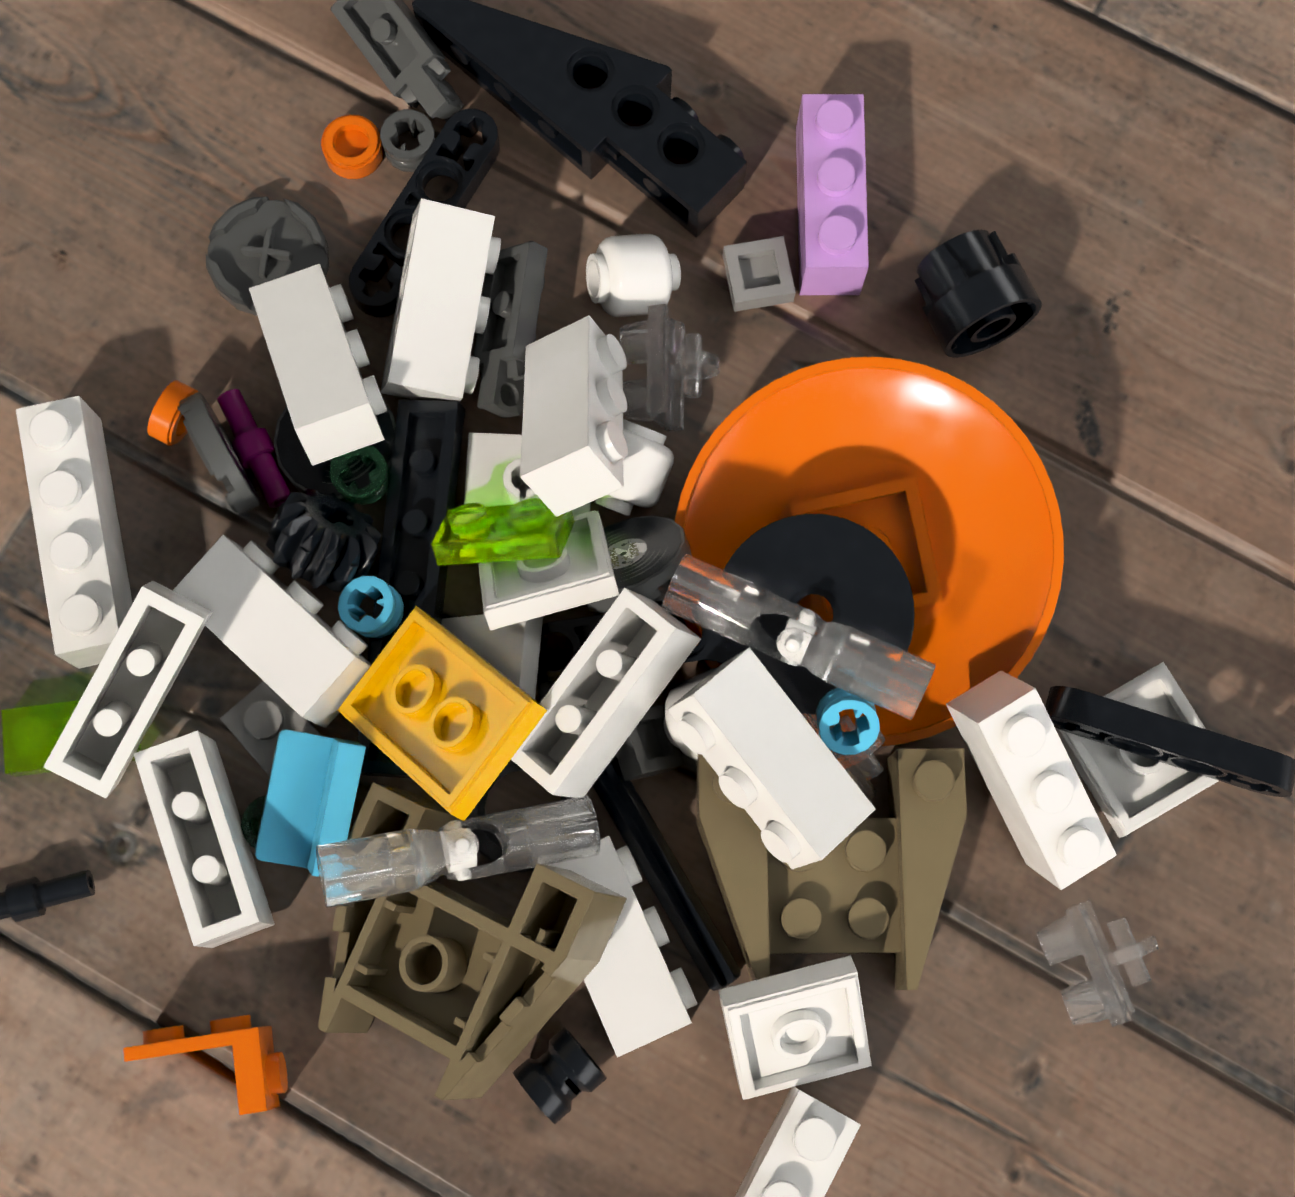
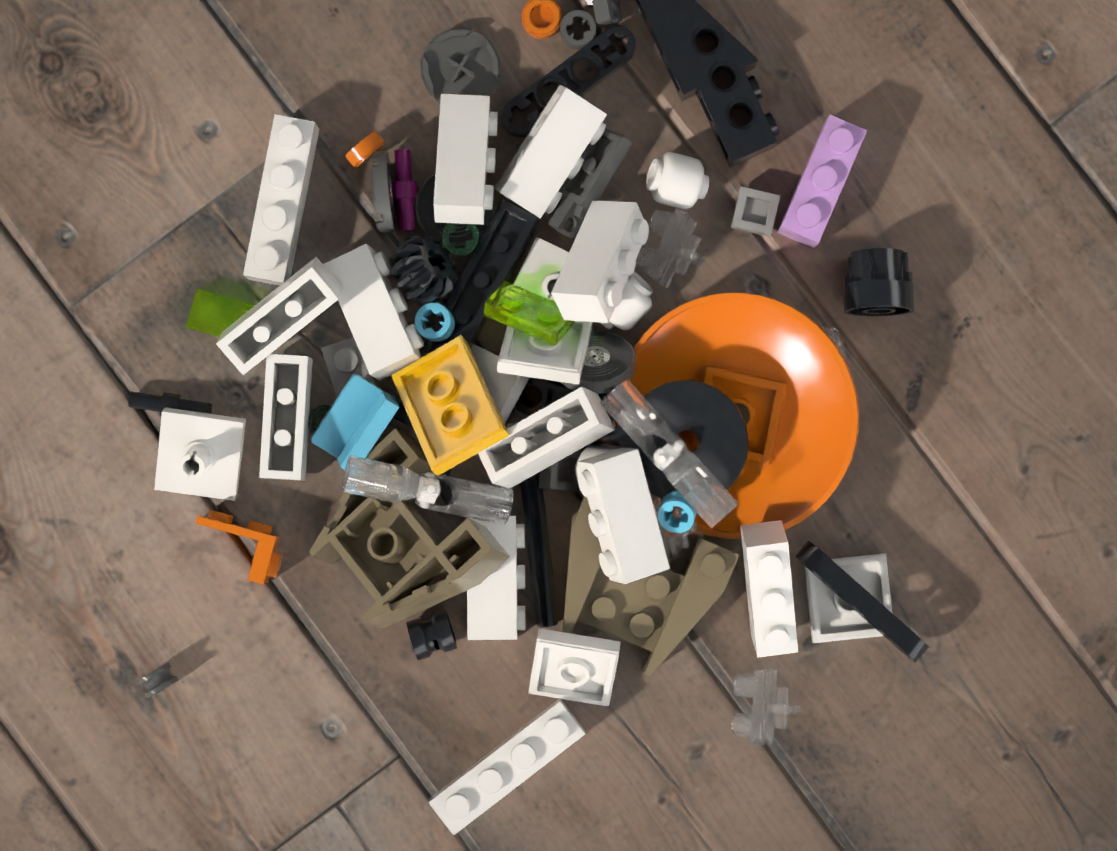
camera: 25 degrees right, 10 degrees up
(96, 953) = (199, 454): none -> white tile

